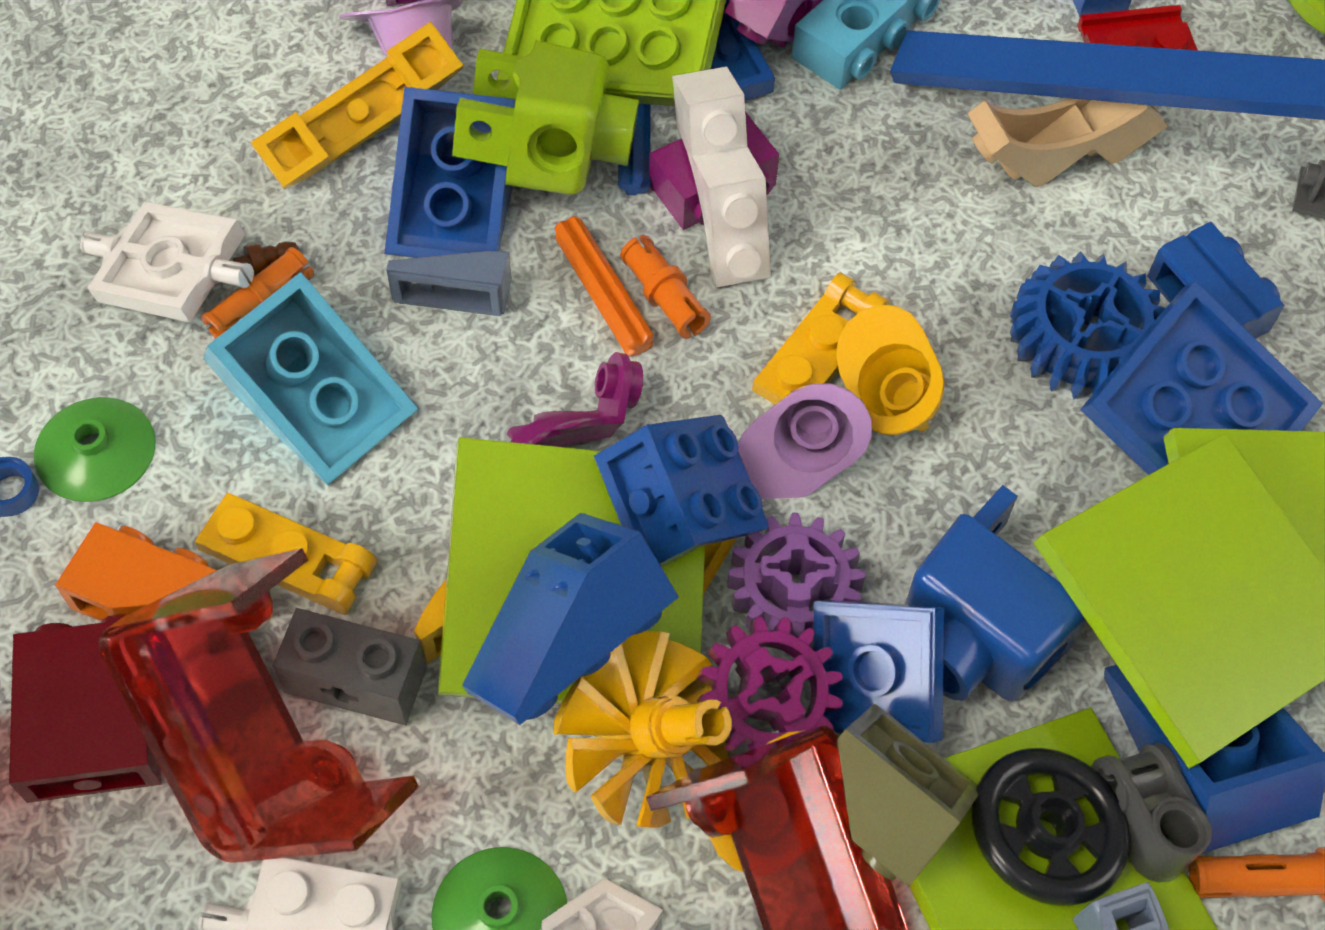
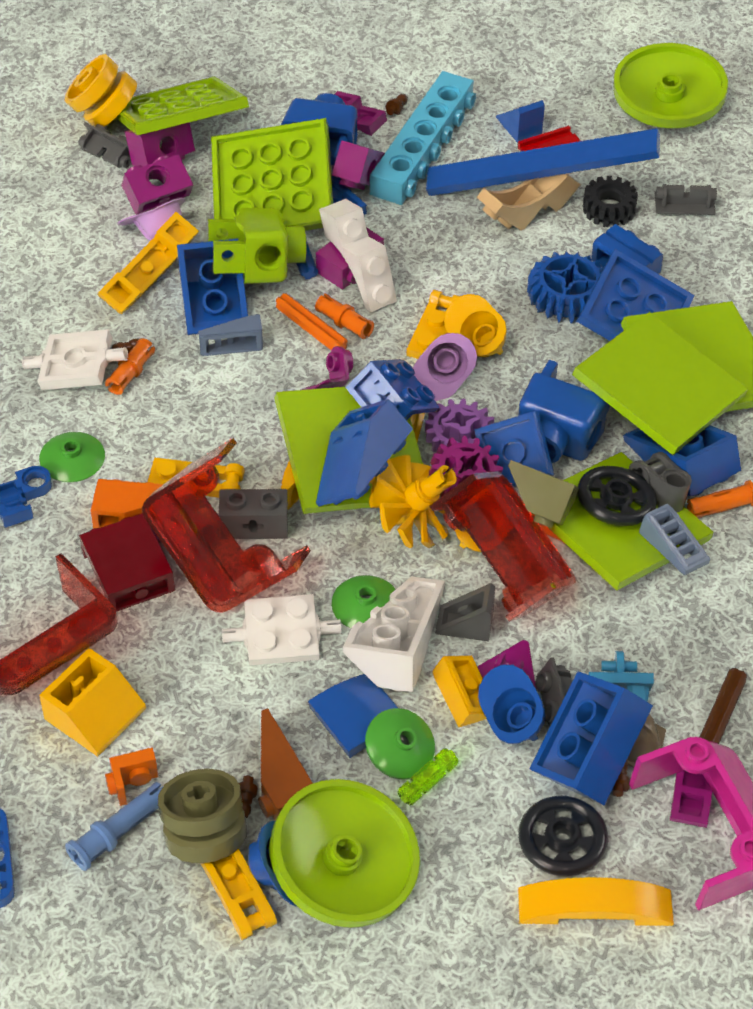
camera: 15 degrees left, 10 degrees down
(309, 379) = (175, 396): medium azure slope -> none
(1218, 145) = (606, 212): none -> black tyre

